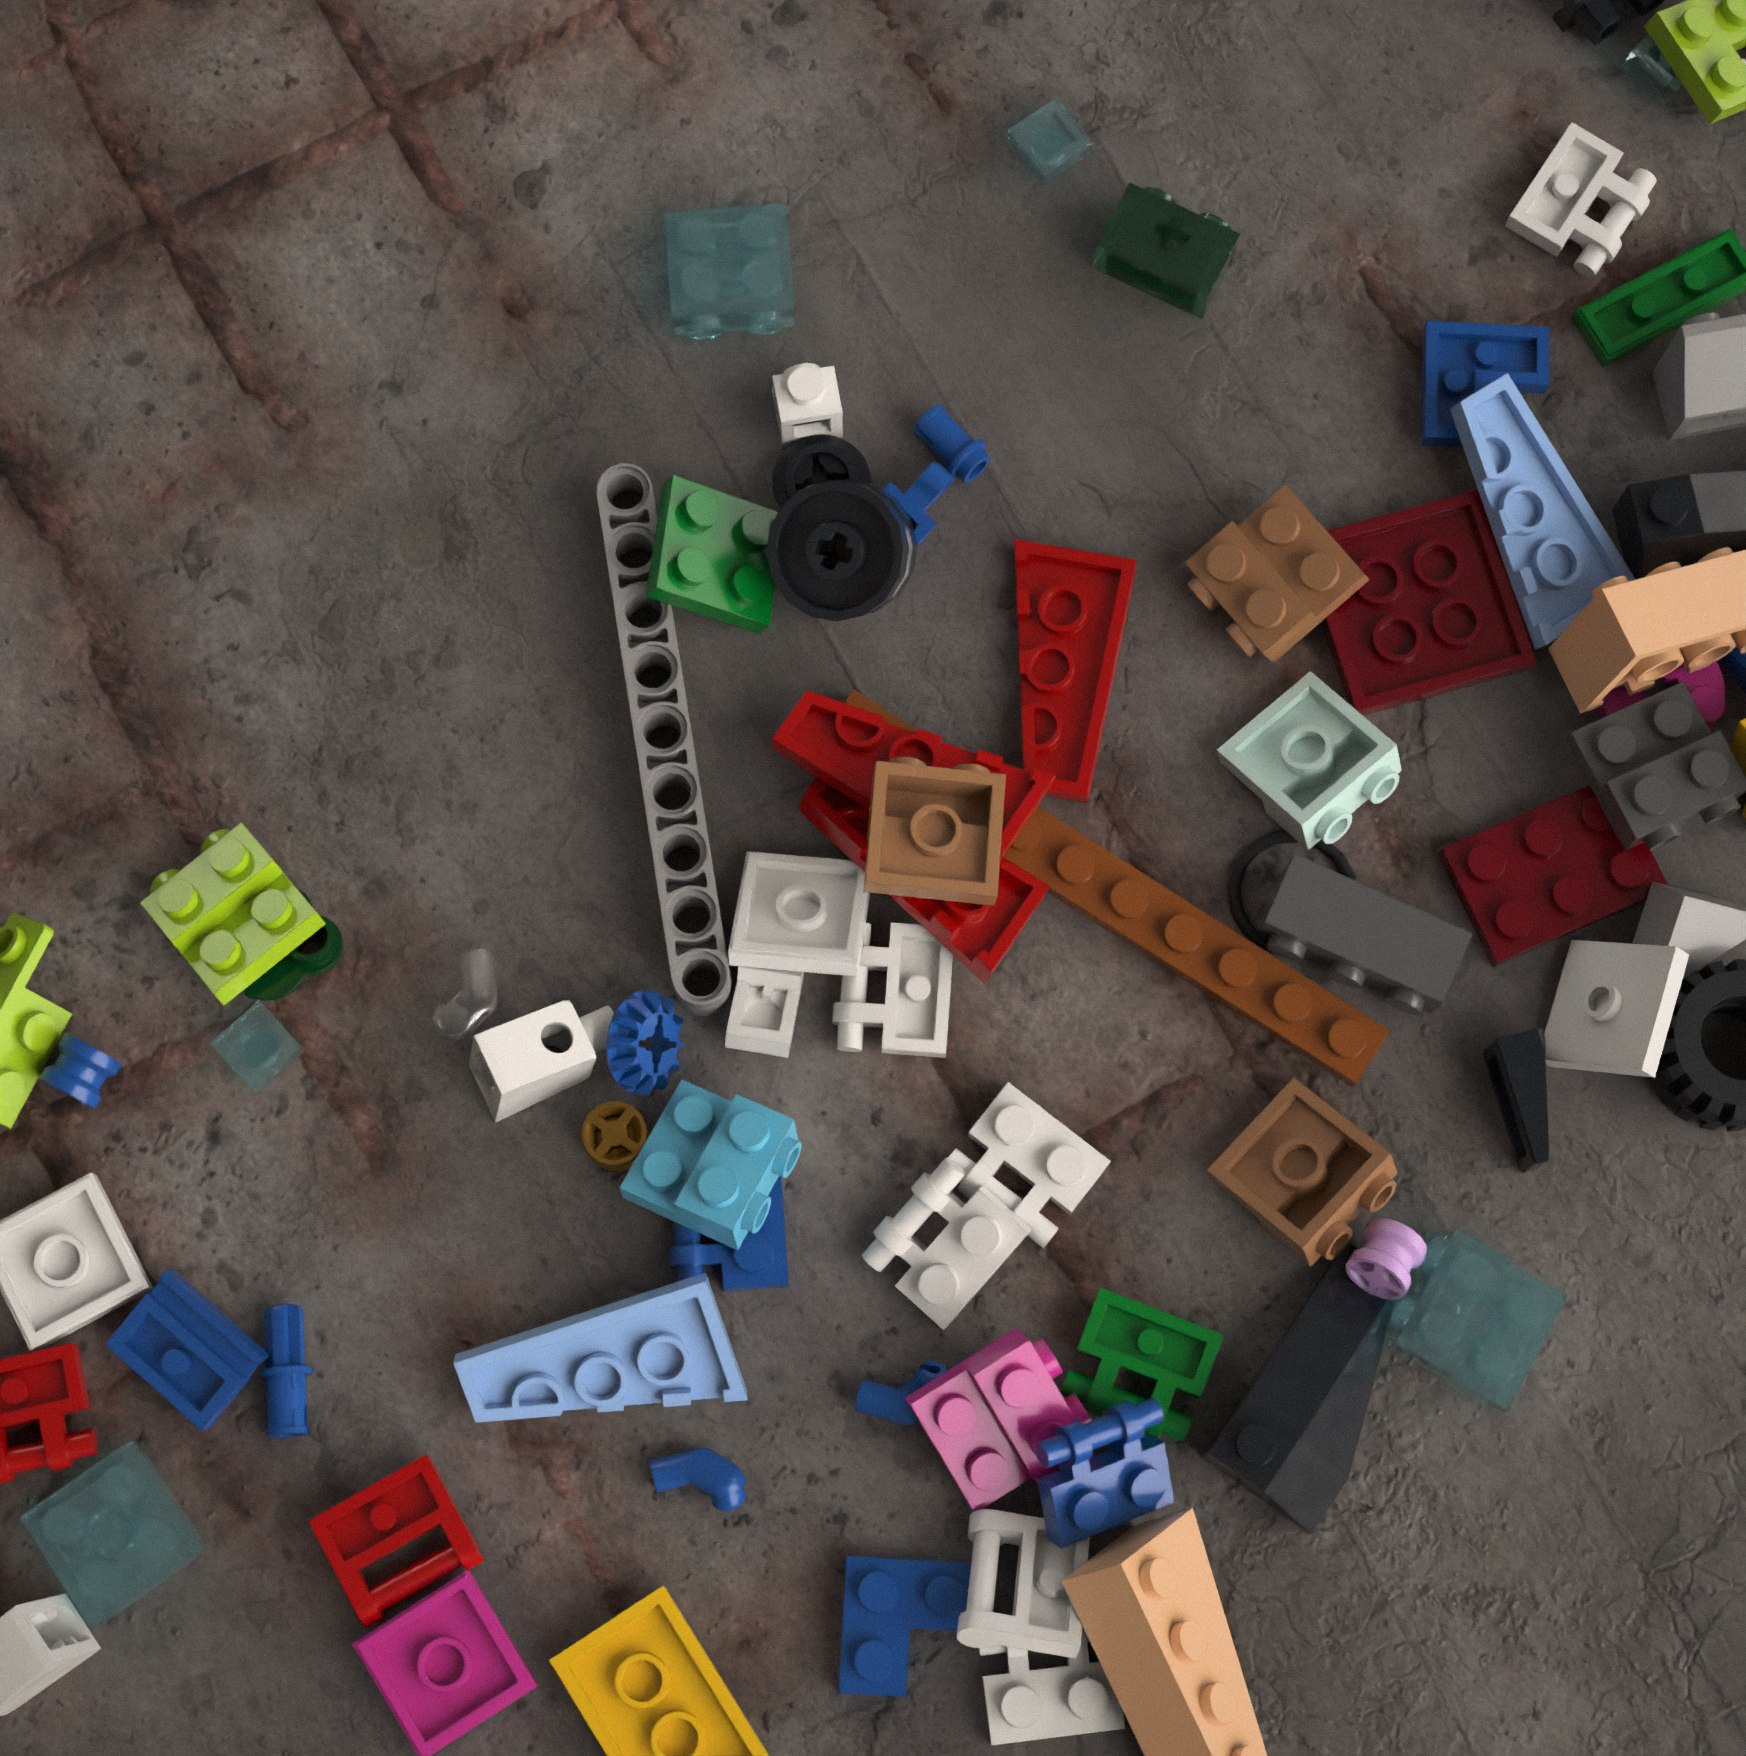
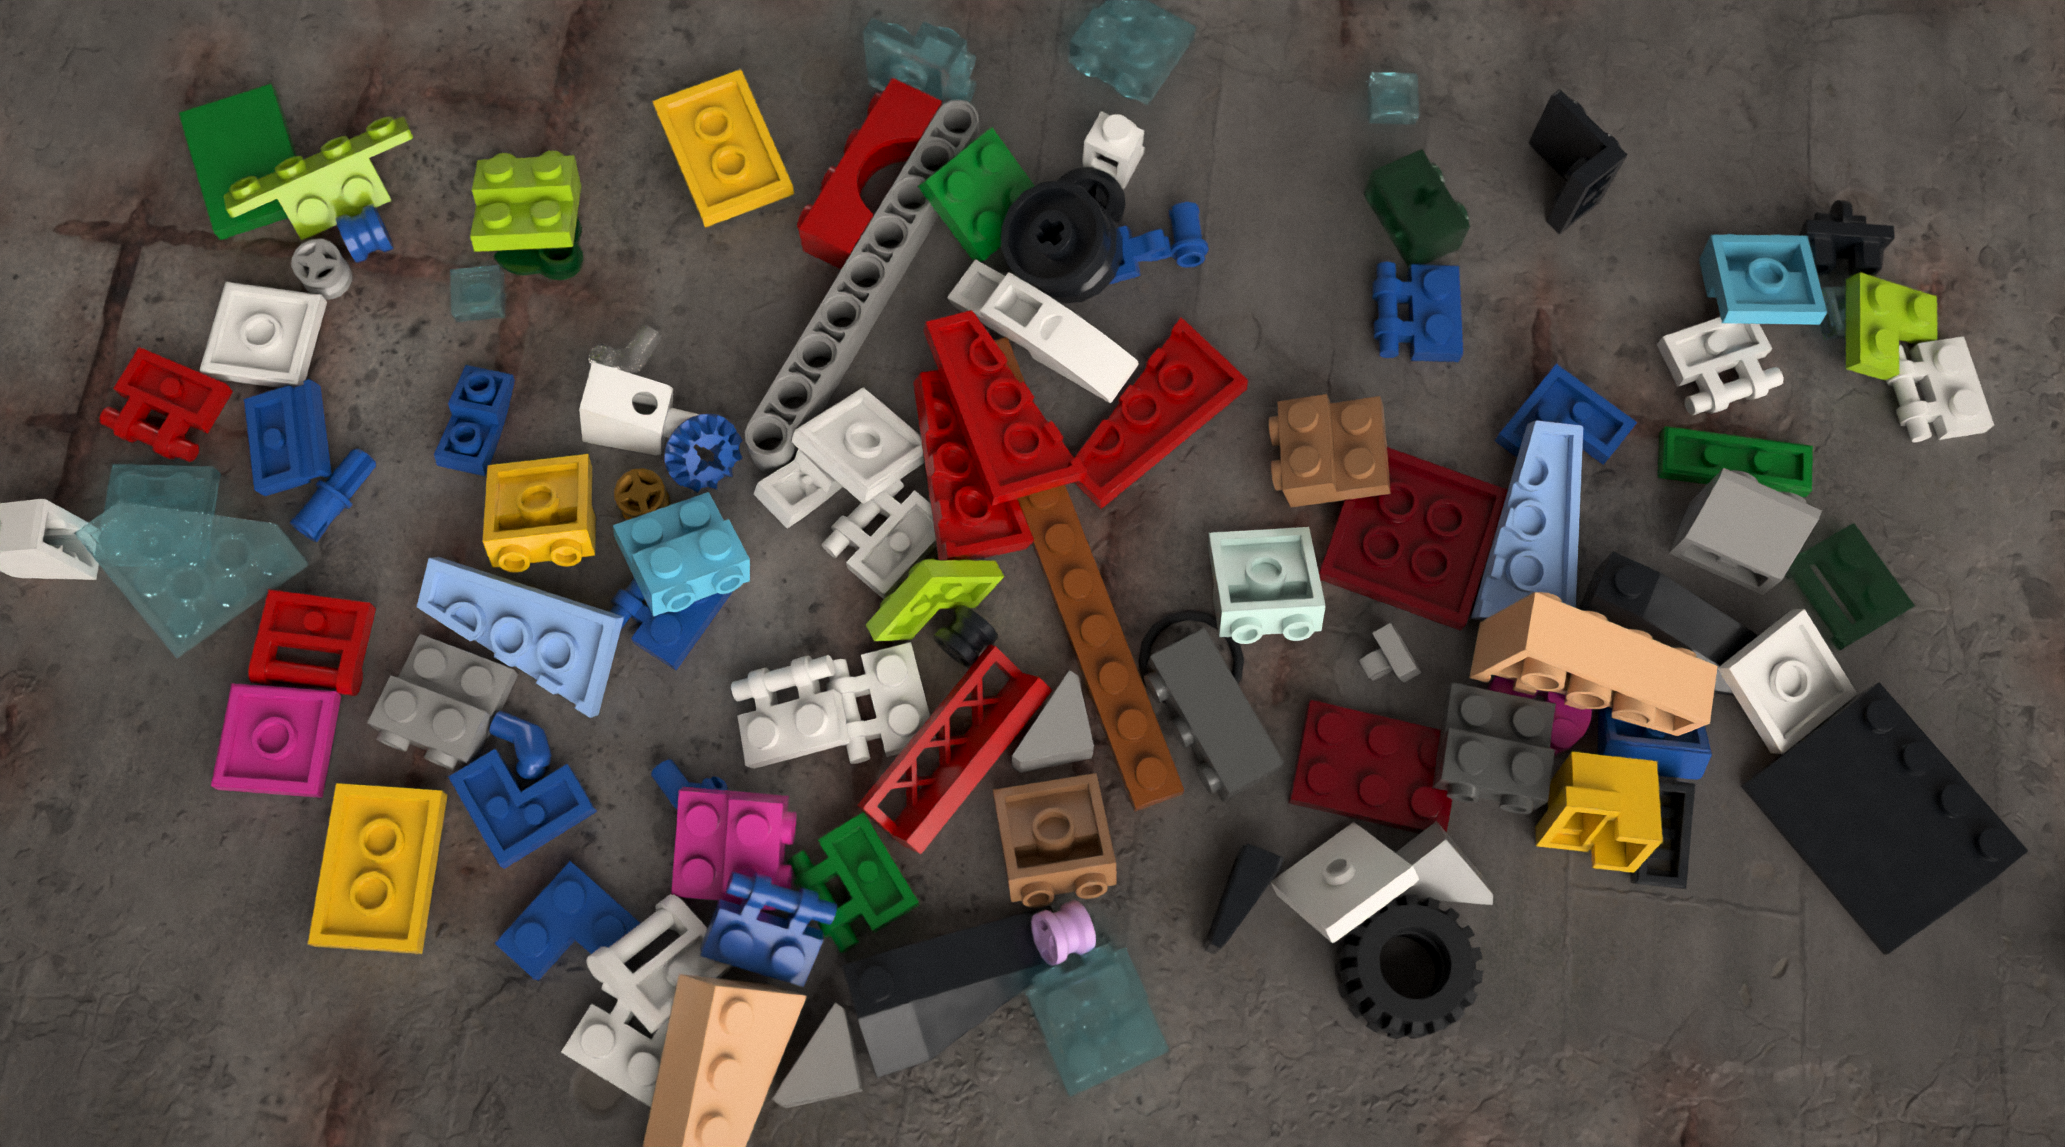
camera: 35 degrees right, 5 degrees down
(56, 1133) = (315, 257): none -> light grey wheel
(208, 1560) = (188, 567): none -> clear light blue plate
(367, 1183) = (476, 420): none -> blue slope
(388, 696) = (723, 148): none -> yellow plate
(523, 1229) = (539, 512): none -> yellow plate
(552, 462) = (929, 61): none -> clear light blue plate
(563, 543) = (887, 137): none -> red arch
(583, 1498) = (442, 703): none -> light grey plate
(754, 1559) = (515, 819): none -> blue plate
(887, 655) = (1045, 329): none -> white slope
(934, 831) = (974, 440): medium nougat plate -> none
(996, 1014) = (932, 587): none -> lime plate
(1059, 1035) = (965, 636): none -> black wheel
(1153, 1160) = (967, 762): none -> red fence
(1226, 1060) = (1059, 732): none -> light grey slope
(1259, 1560) = (825, 1067): none -> light grey slope
(1260, 349) = (1433, 312): none -> blue plate
(1290, 75) = (1579, 154): none -> black bracket
(1488, 744) = (1391, 656): none -> light grey tile
(1565, 85) = (1763, 279): none -> medium azure plate

